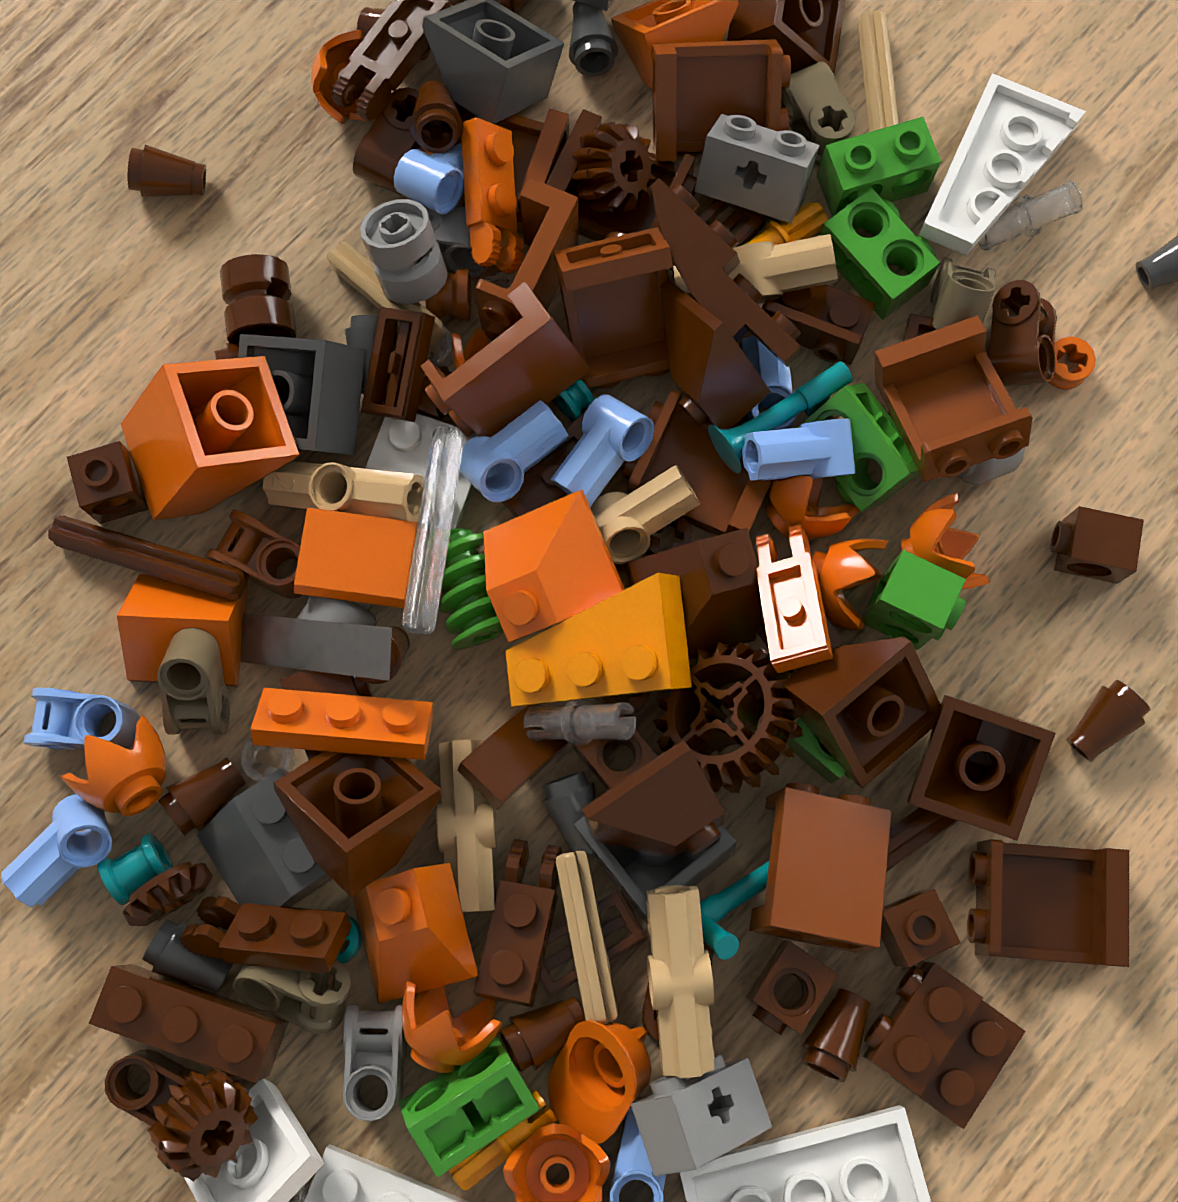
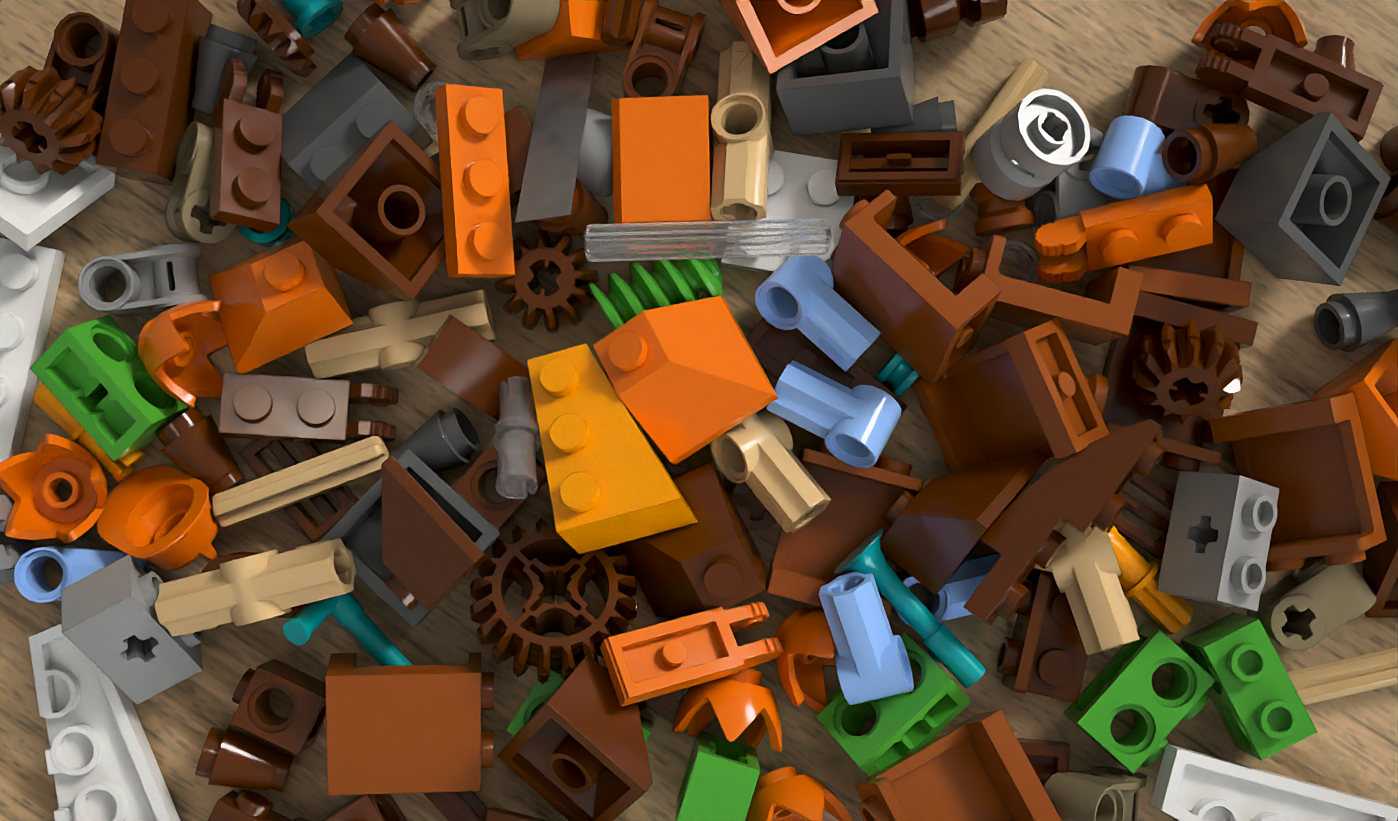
camera: 85 degrees right, 10 degrees up
(452, 668) = (568, 282): none -> reddish brown gear

